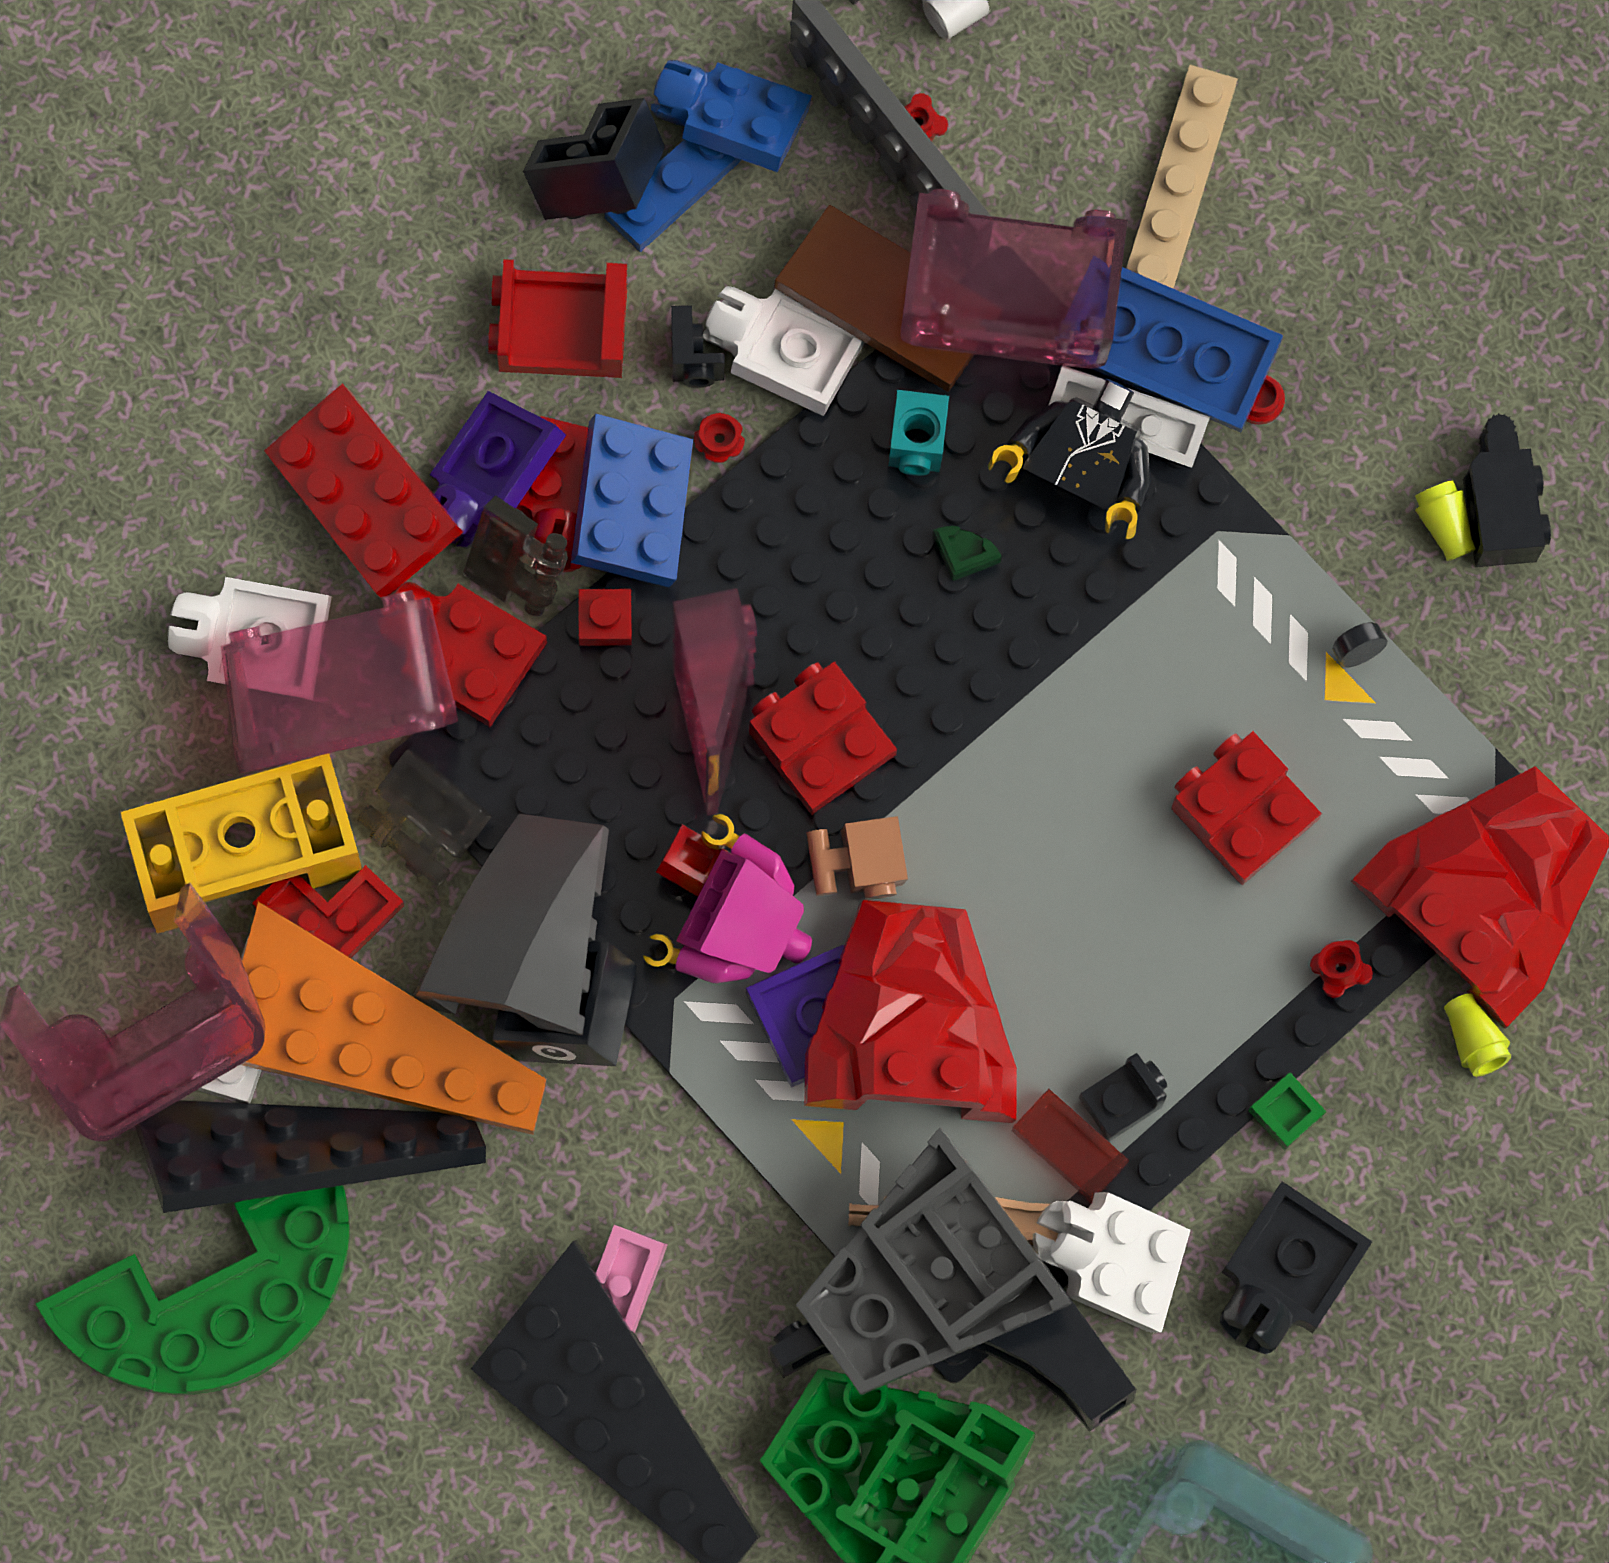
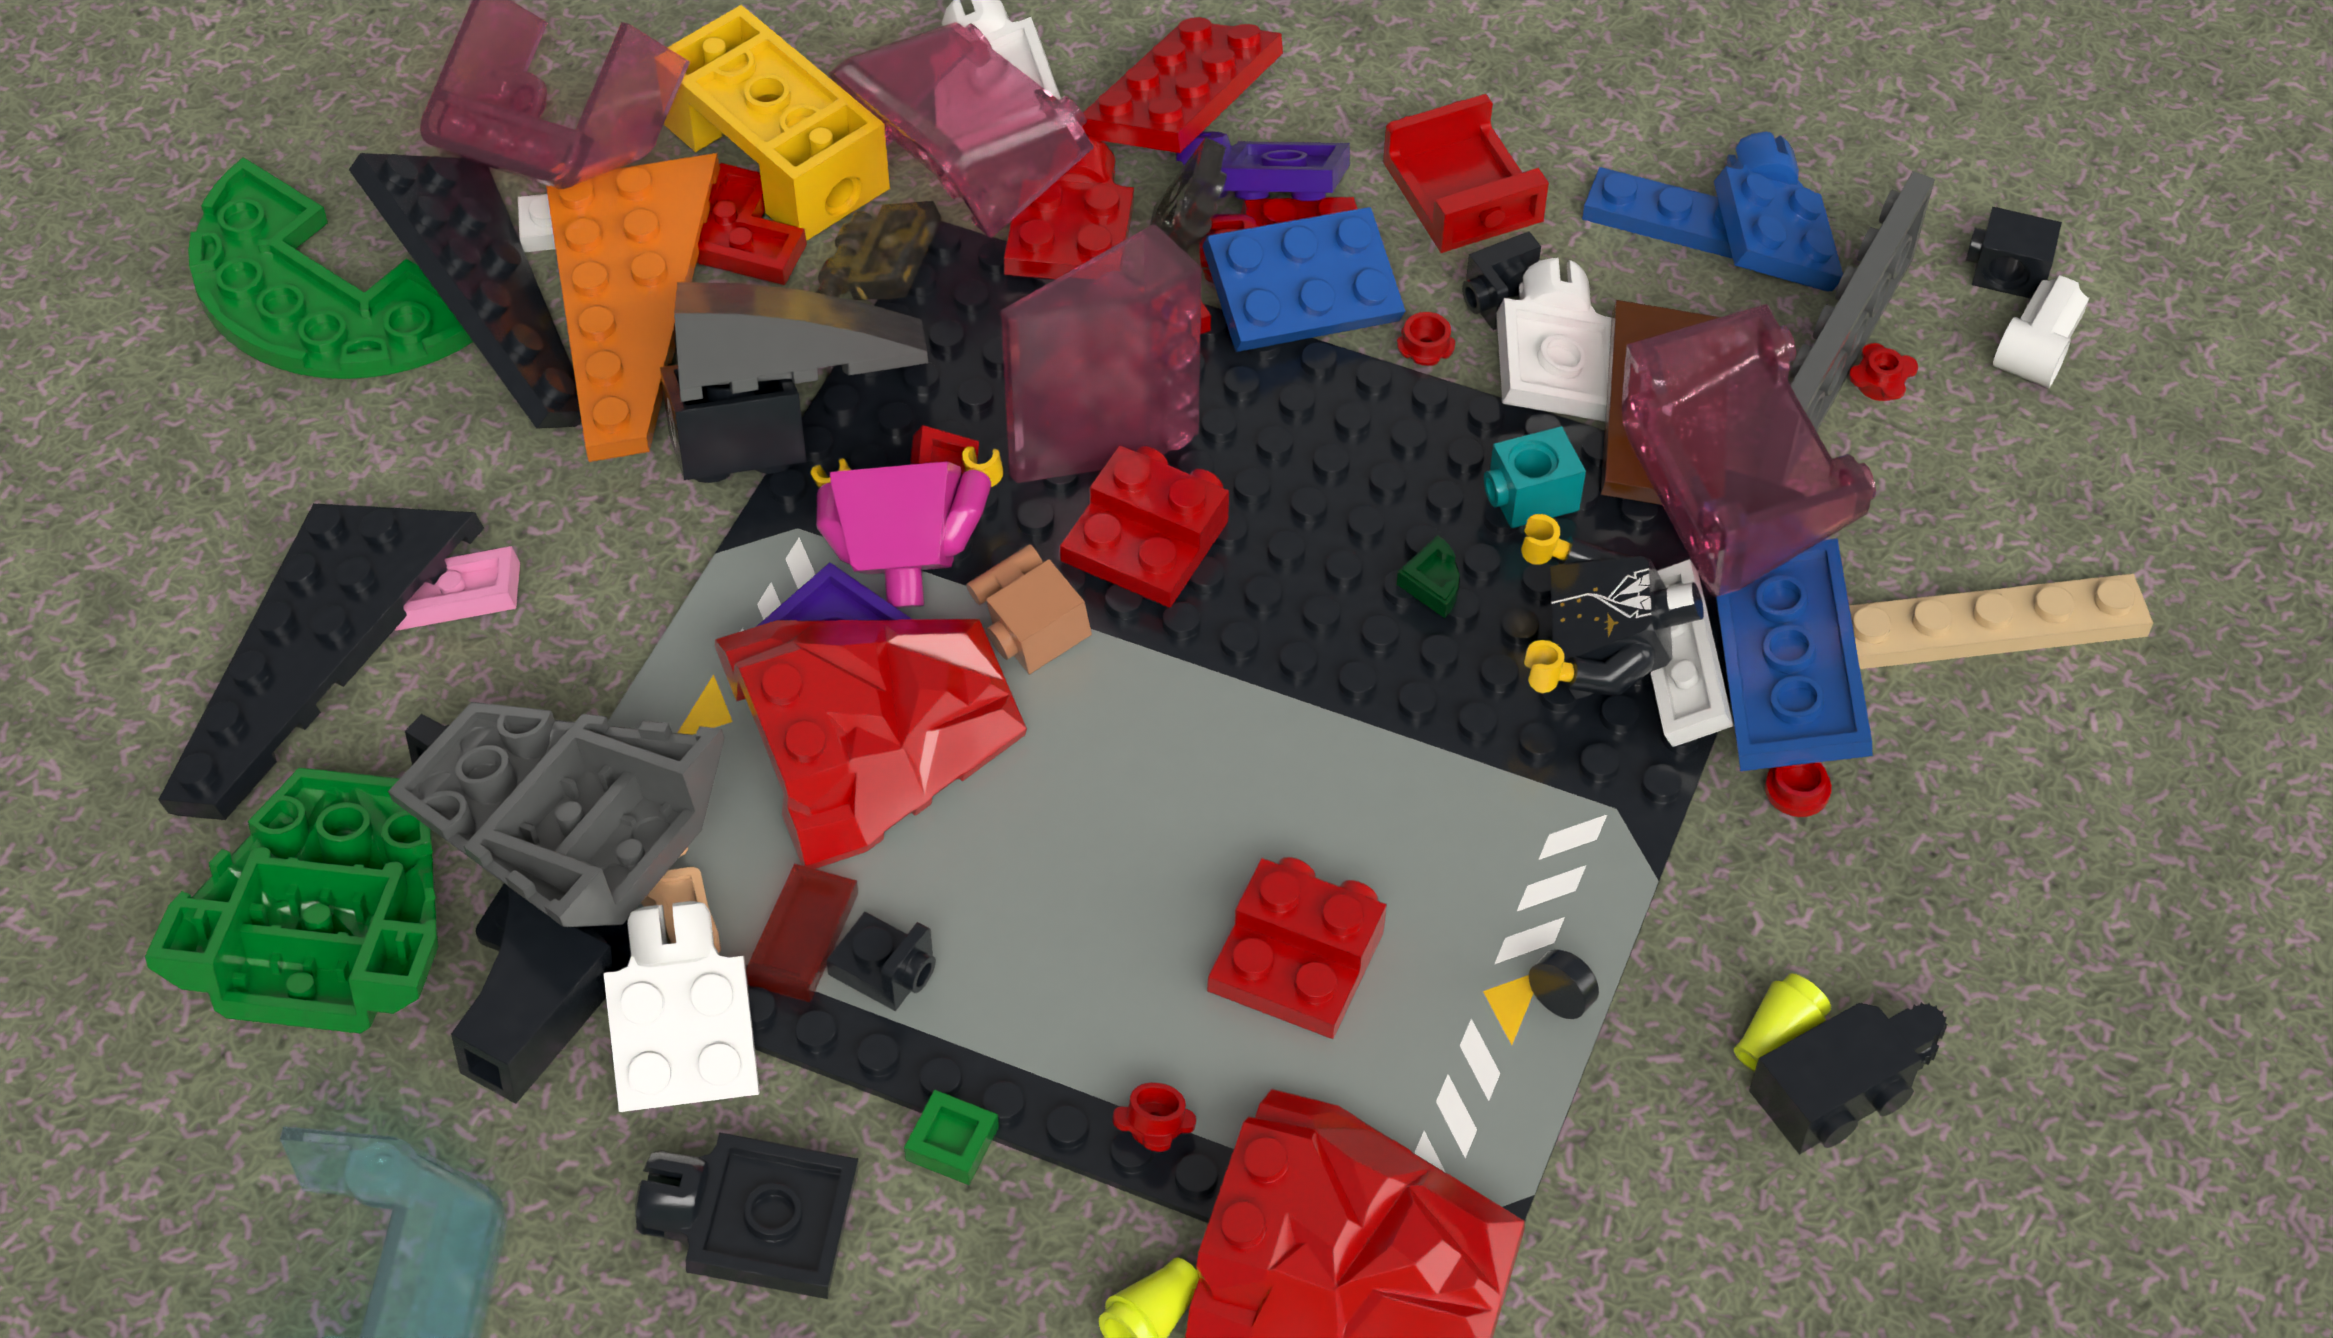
camera: 70 degrees right, 20 degrees down
(600, 168) = (1639, 127): black brick -> none

